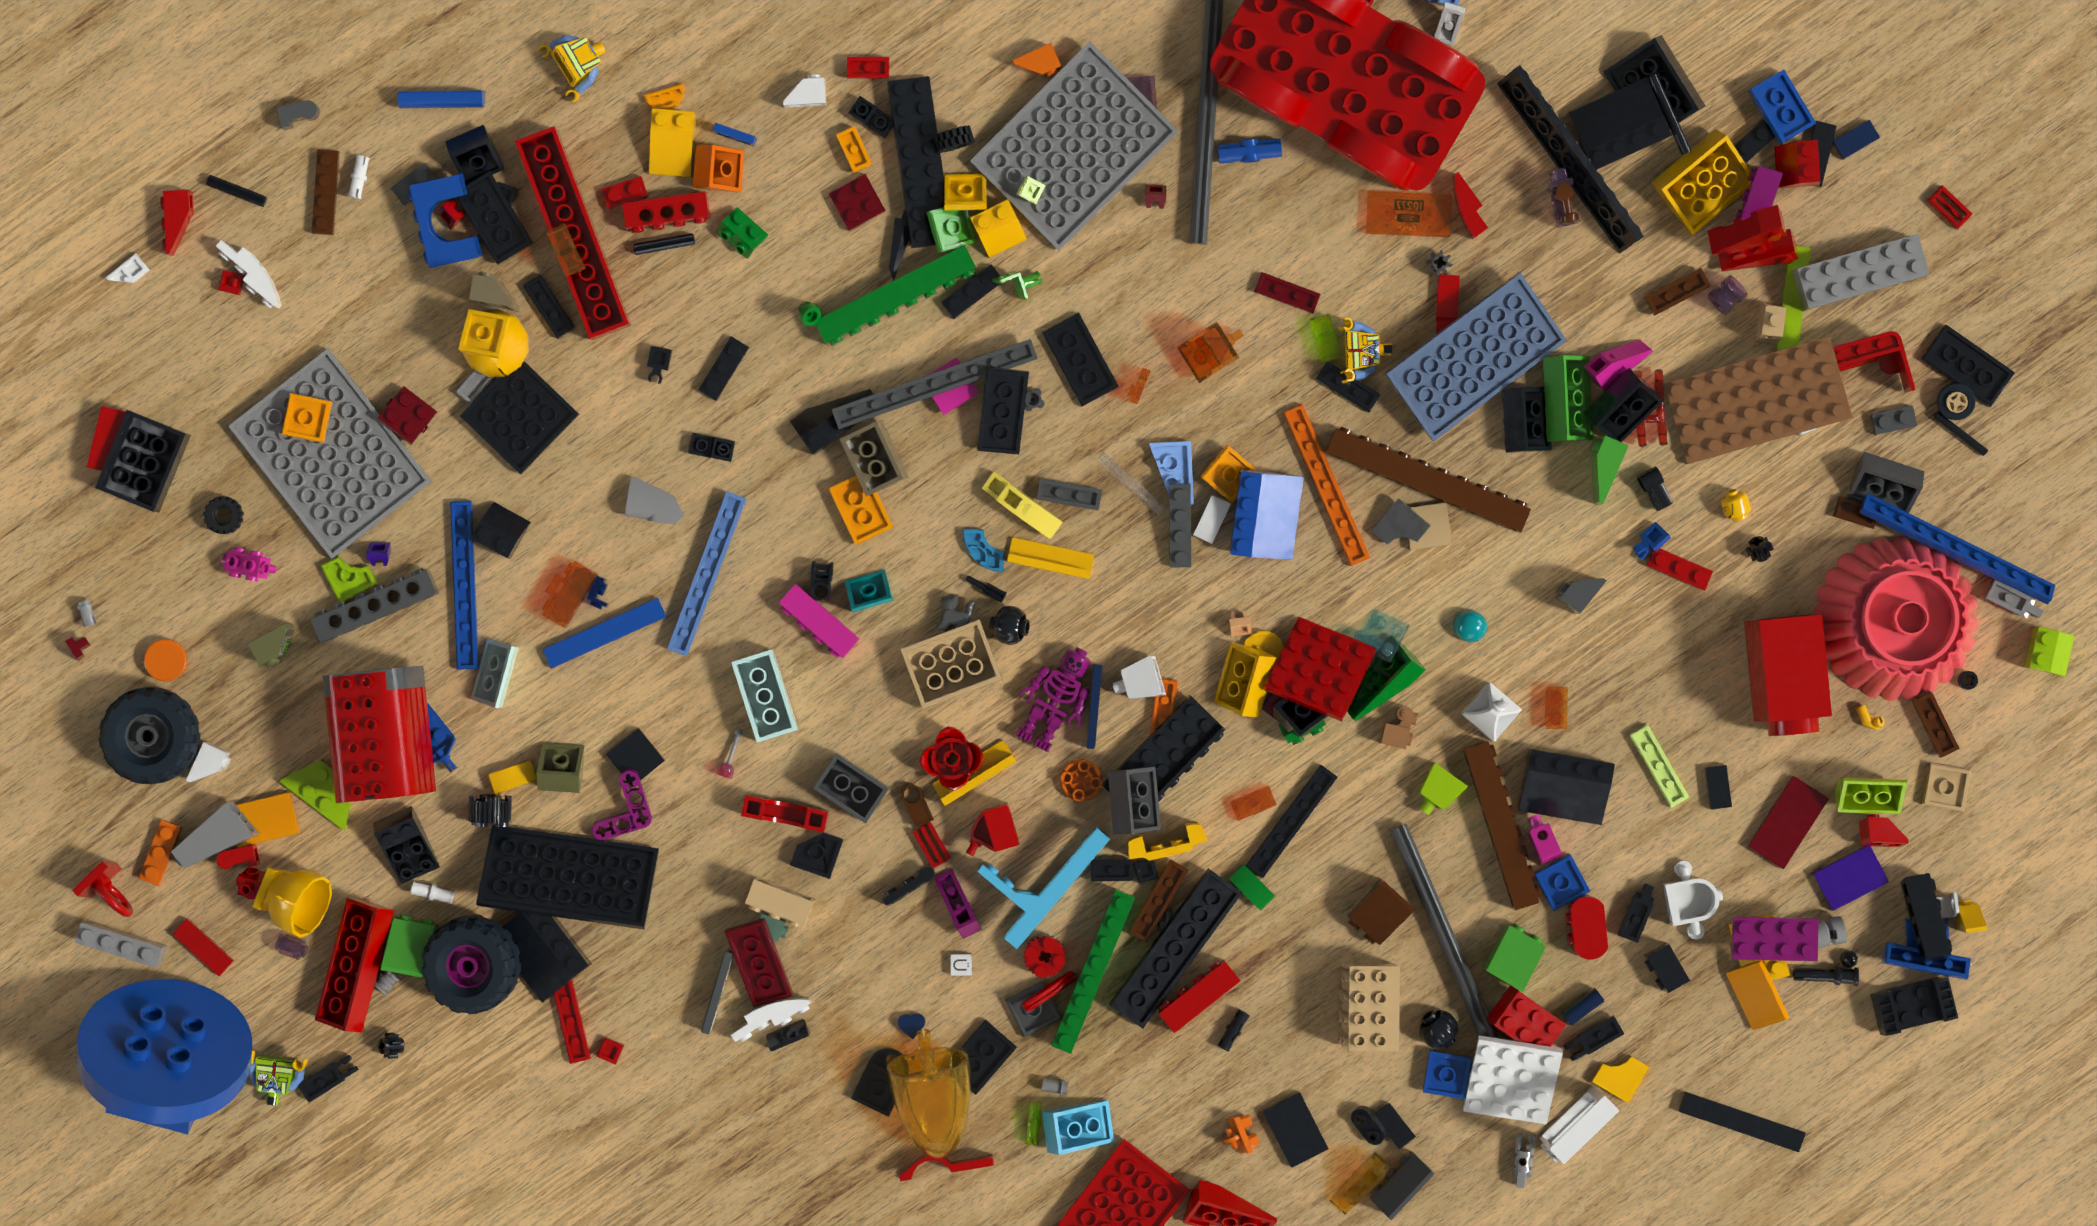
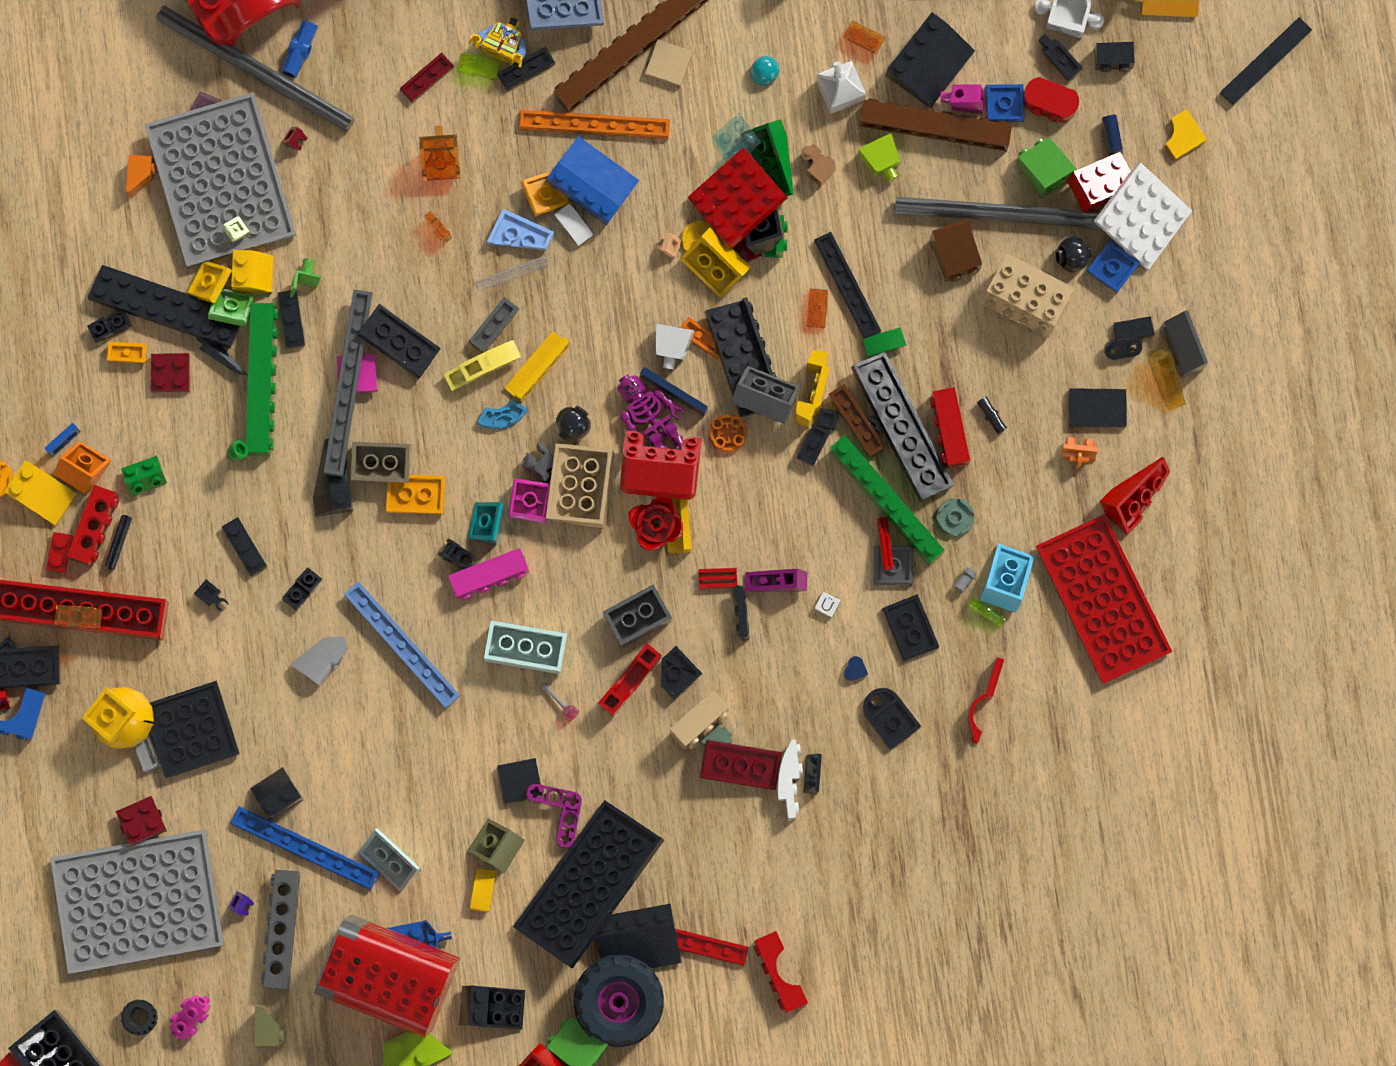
camera: 65 degrees left, 10 degrees down
(306, 417) = (97, 903): light orange plate -> none
(348, 580) = (249, 942): lime tile -> none
(432, 892) = (543, 1006): white pin -> none
(490, 292) = (80, 694): dark tan slope -> none
(490, 809) = (500, 920): black brick -> none
(549, 306) = (117, 661): black tile -> none
(564, 1123) = (790, 995): none -> red arch
(568, 600) = (363, 770): clear orange piece -> none
(597, 589) = (366, 737): clear blue bracket -> none
(604, 633) = (405, 753): blue tile -> none
(610, 1050) = (750, 927): red tile -> none
(717, 992) = (747, 812): dark grey tile -> none
(807, 93) = (62, 365): white slope -> none
(868, 67) = (68, 308): red plate -> none
(919, 611) = (522, 491): none -> dark pink brick
(919, 810) = (684, 574): reddish brown piece -> none
(932, 1095) = (922, 677): clear yellow windscreen -> none
(954, 139) = (162, 268): black tyre -> none
(988, 589) = (536, 427): black axle -> none
(993, 830) = (731, 518): red piece -> none
(1003, 737) = (660, 470): none -> red windscreen
(1036, 393) = (406, 311): dark grey plate -> none
(1039, 904) = (811, 515): medium azure piece -> none
(1049, 945) = (846, 539): red brick -> none
(1080, 359) = (391, 263): black tile -> none
(1113, 1045) = (955, 517): none -> sand green tile
(1180, 524) = (565, 250): dark grey plate -> none
(1400, 522) = (654, 81): flat silver tile -> none
(1521, 1169) = (1220, 246): light grey hinge -> none
(1578, 1125) = (1204, 179): white window -> none
(1595, 1037) = (1142, 137): black hinge -> none

